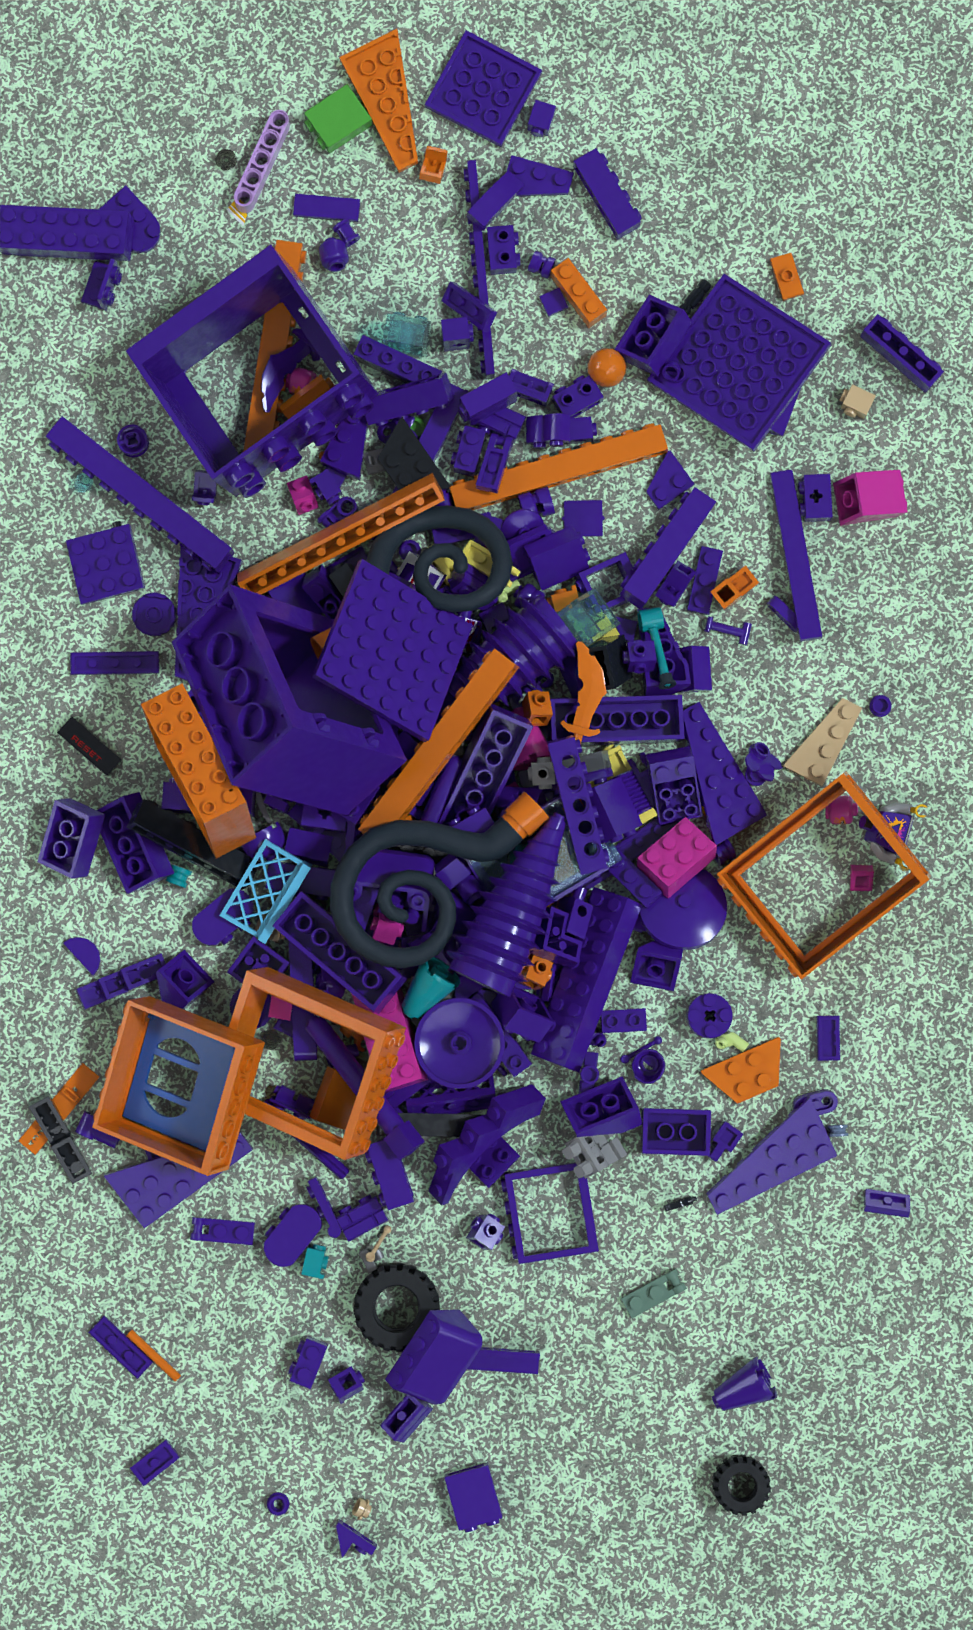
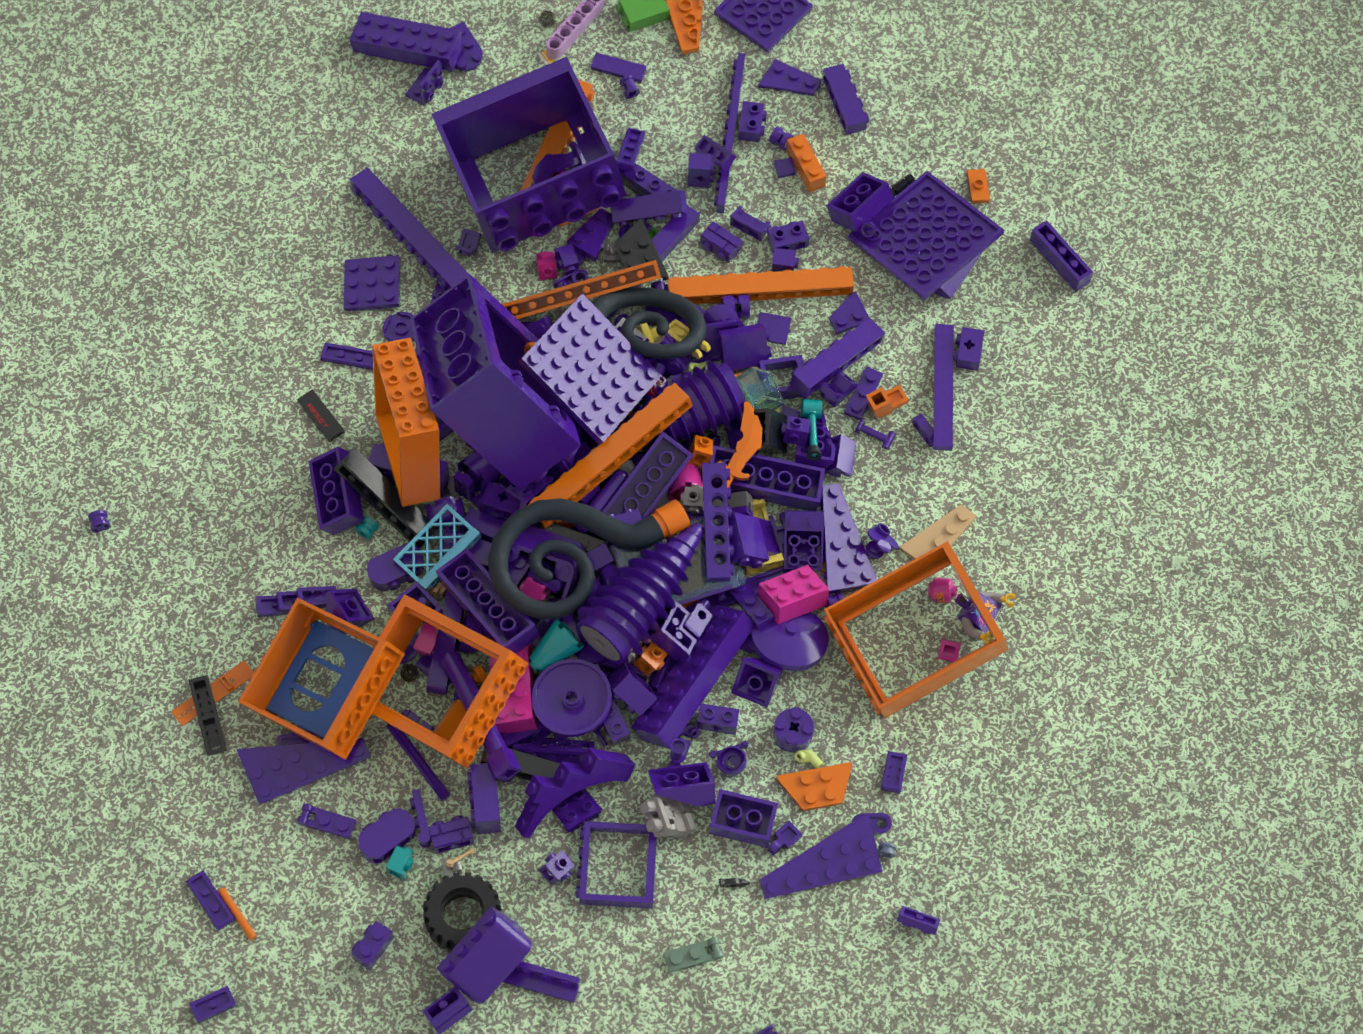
camera: 10 degrees right, 20 degrees down
(71, 838) = (285, 475): dark purple brick -> none
(83, 483) = (370, 221): clear light blue hinge -> none
(85, 952) = (272, 573): dark purple tile -> none
(85, 1129) = (242, 715): dark purple piece -> none
(132, 441) = (419, 198): dark purple wheel -> none
(333, 254) = (615, 99): dark purple head -> none
(338, 1381) = (401, 972): dark purple brick -> none
(367, 324) = (630, 149): none -> dark purple tile
(407, 333) = (661, 161): clear light blue brick -> none
(433, 164) = (711, 53): orange bracket -> none
(469, 452) = (690, 258): dark purple brick -> none
(487, 399) = (714, 216): dark purple brick -> none
(494, 463) = (708, 267): dark purple plate -> none
(495, 200) = (753, 84): dark purple slope -> none
(541, 118) = (804, 37): dark purple brick -> none
(547, 430) = (758, 253): dark purple brick -> none
(607, 367) = (817, 218): orange piece -> none
(856, 401) = (1017, 285): tan brick -> none
(870, 496) = (1014, 355): dark pink slope -> none
(880, 706) = (992, 517): dark purple plate -> none

